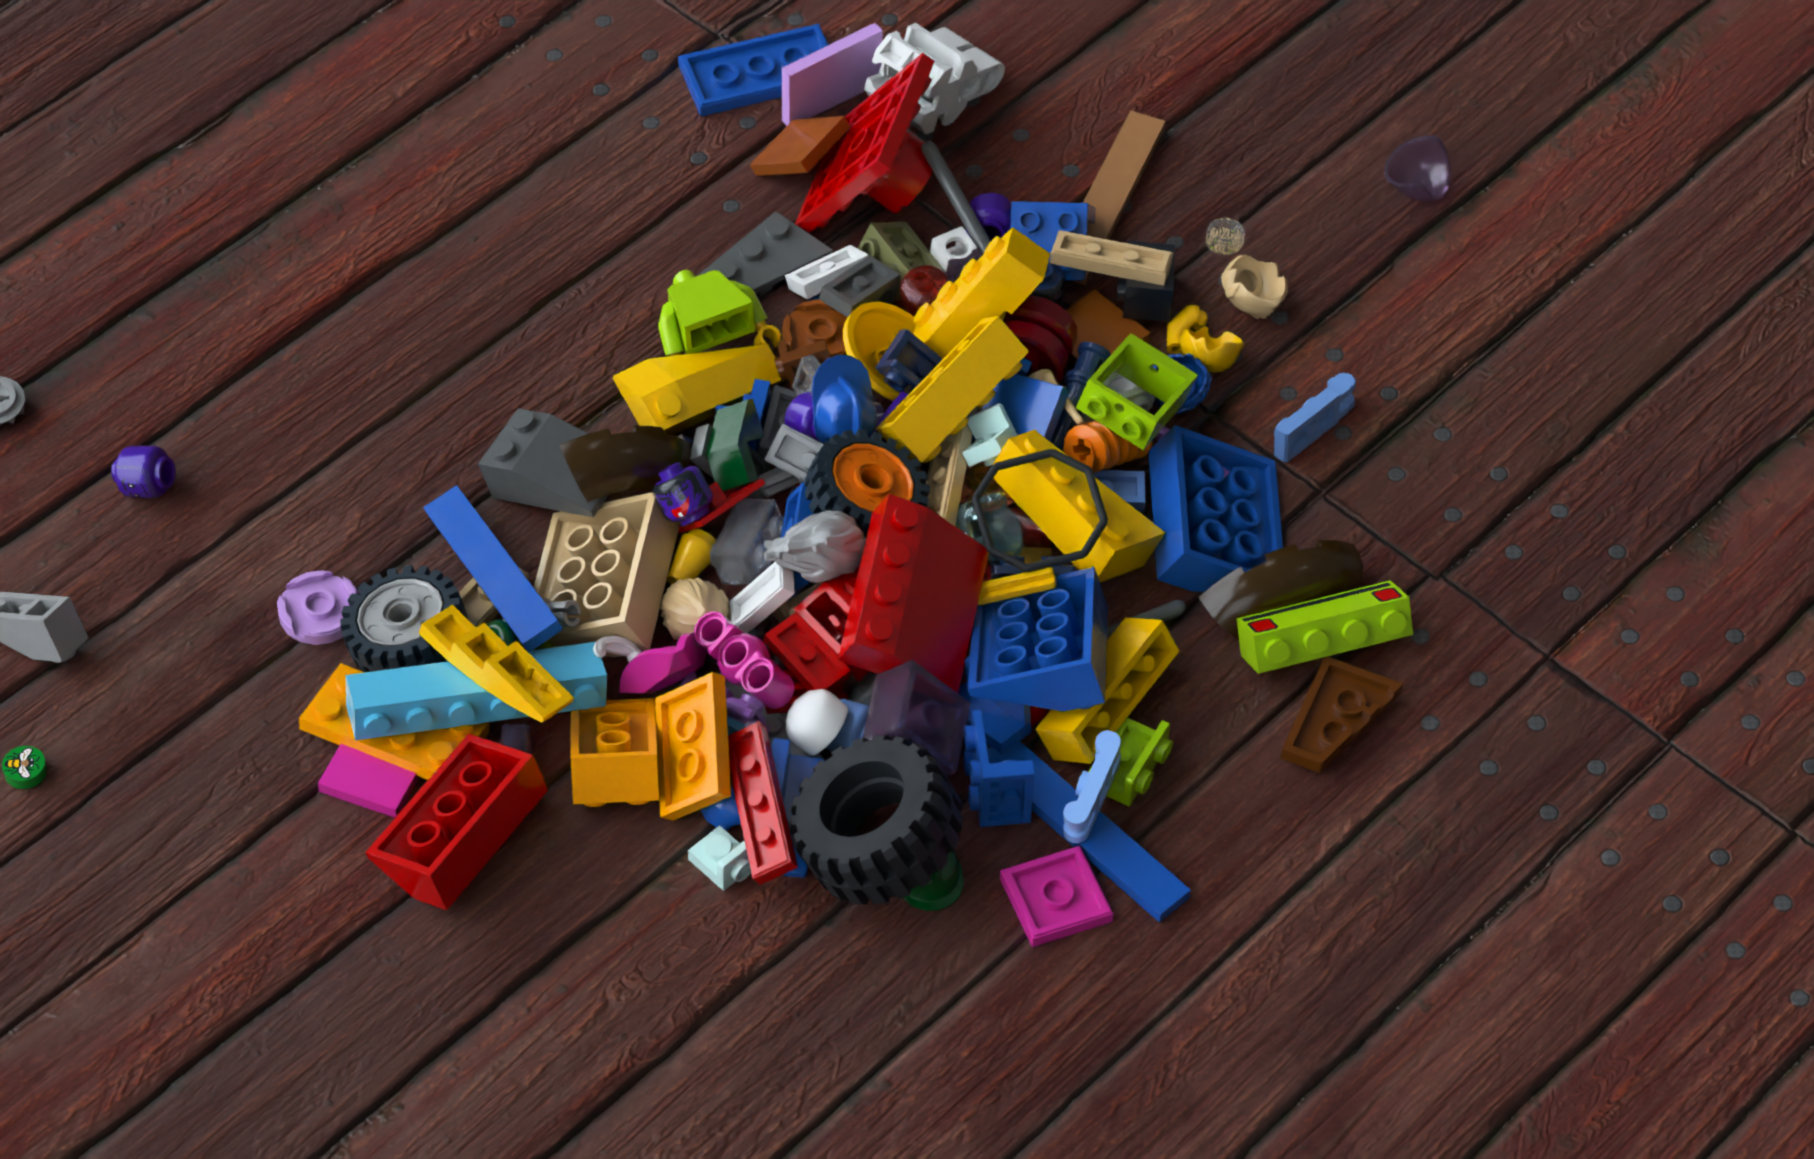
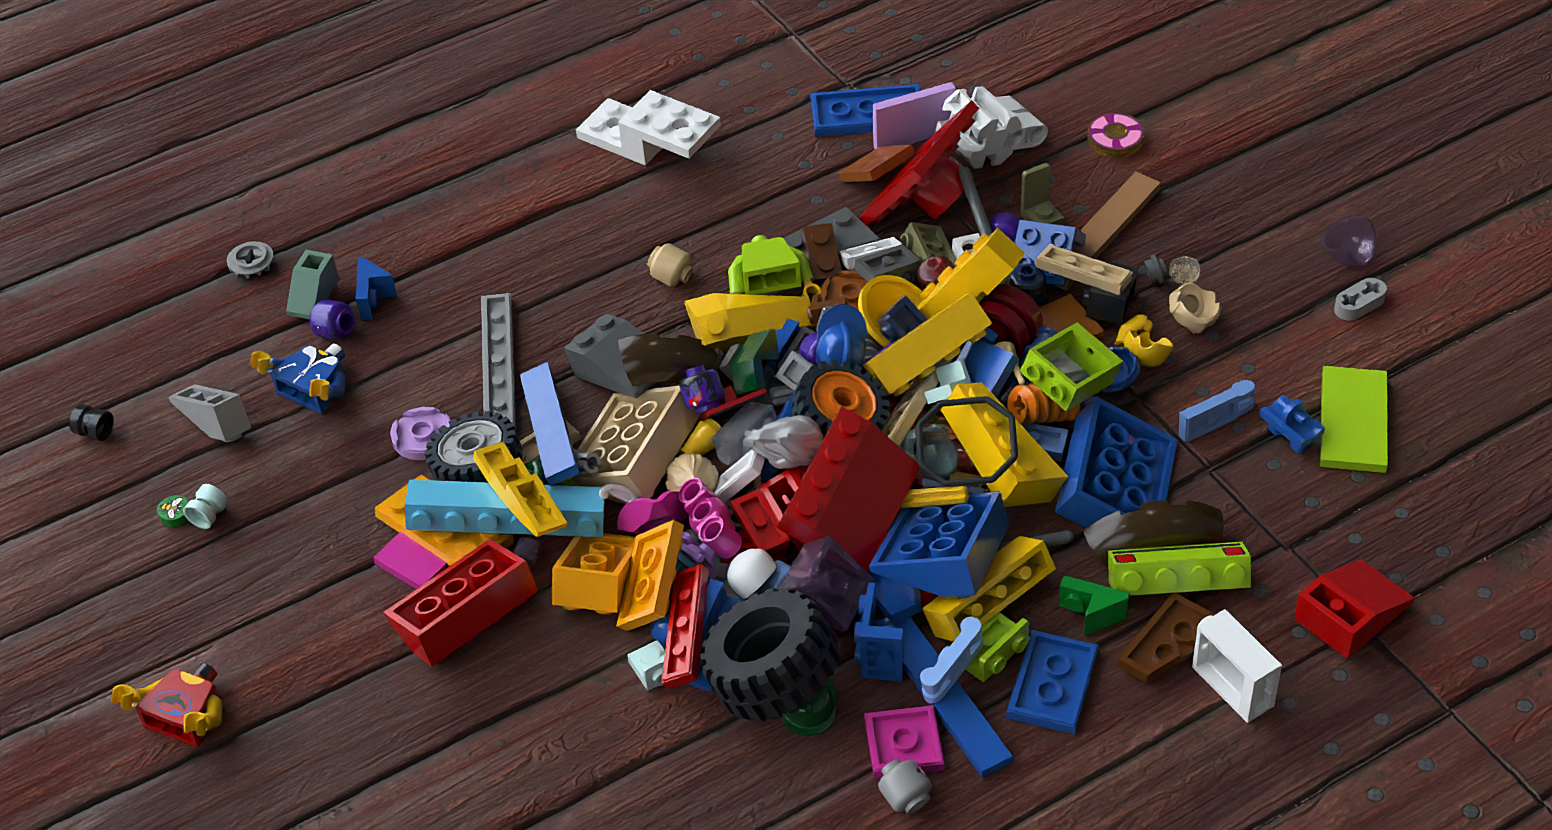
camera: 20 degrees right, 5 degrees down
(67, 758) = (206, 505): none -> light aqua wheel
(98, 426) = (311, 282): none -> sand green slope
(136, 1018) = (176, 705): none -> torso
(139, 555) = (307, 376): none -> blue torso
(181, 413) = (372, 284): none -> blue slope
(382, 485) = (498, 355): none -> light grey tile
(481, 136) = (648, 127): none -> white bracket
(572, 327) = (670, 265): none -> tan head
(766, 276) = (821, 252): none -> reddish brown plate
(1018, 176) = (1035, 196): none -> olive bracket
(1077, 949) = (905, 786): none -> light grey head
(1089, 61) = (1115, 134): none -> tile
(1191, 241) = (1155, 269): none -> dark grey plate
(1211, 791) = (1052, 682): none -> blue tile
(1242, 684) = (1099, 603): none -> green slope
(1409, 418) = (1292, 421): none -> blue hips
(1435, 766) = (1236, 665): none -> white window
(1452, 248) = (1363, 302): none -> light grey beam
(1477, 401) = (1354, 419): none -> lime tile
(1532, 638) = (1350, 606): none -> red slope

